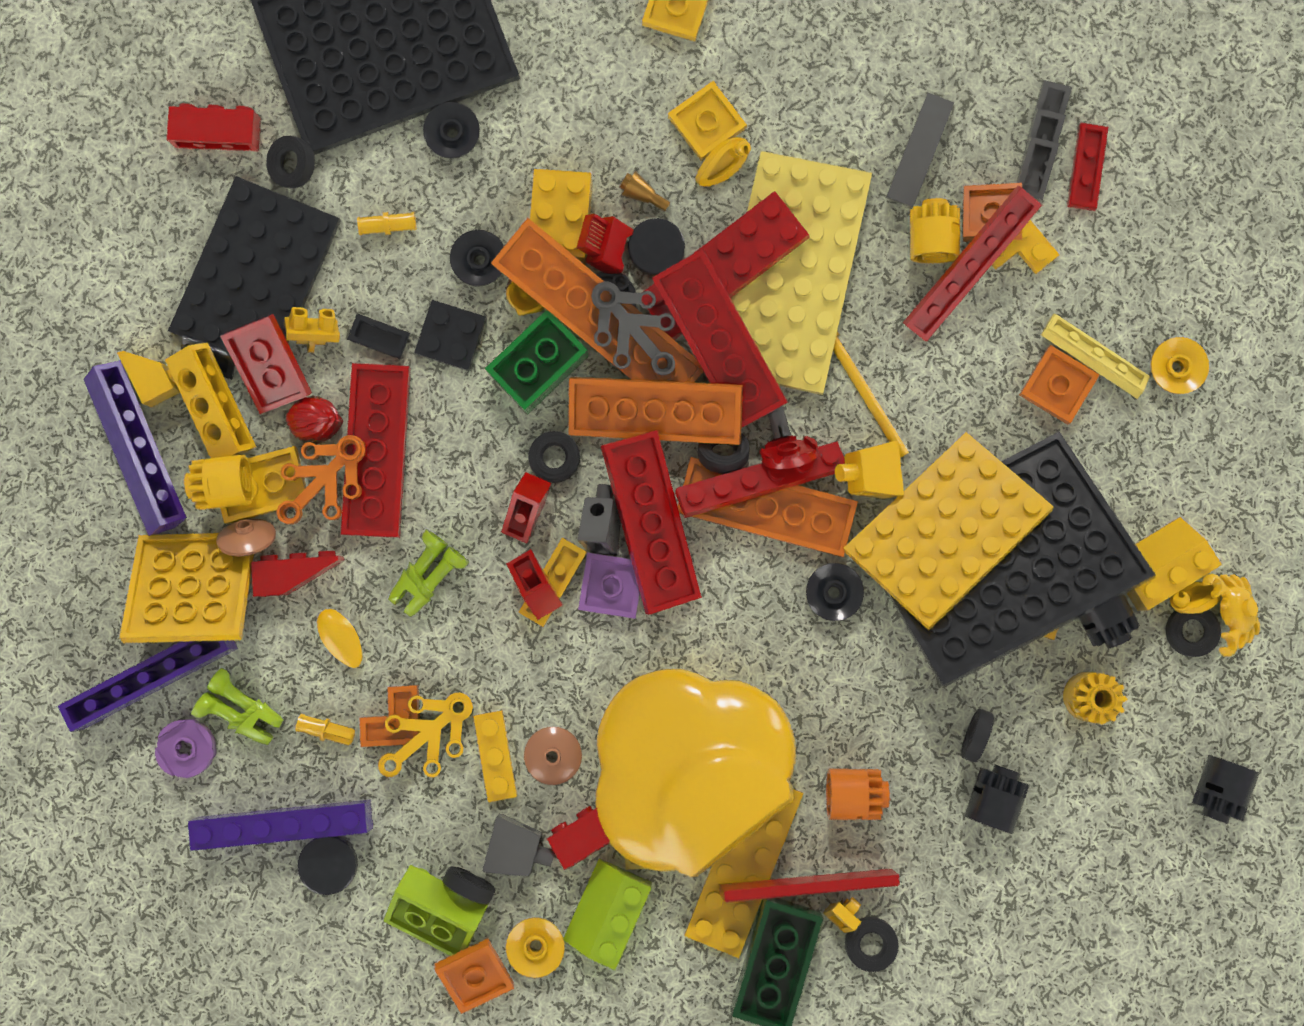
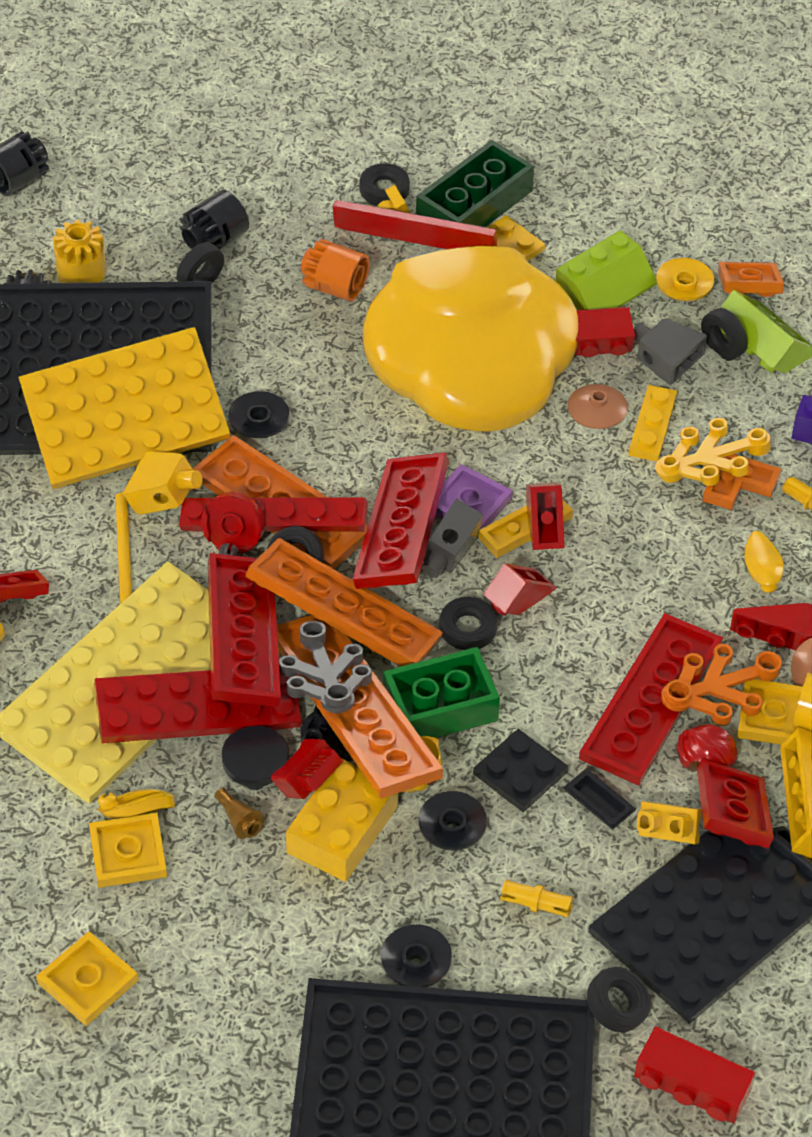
camera: 160 degrees left, 35 degrees down
(413, 580) = (667, 566): lime piece -> none

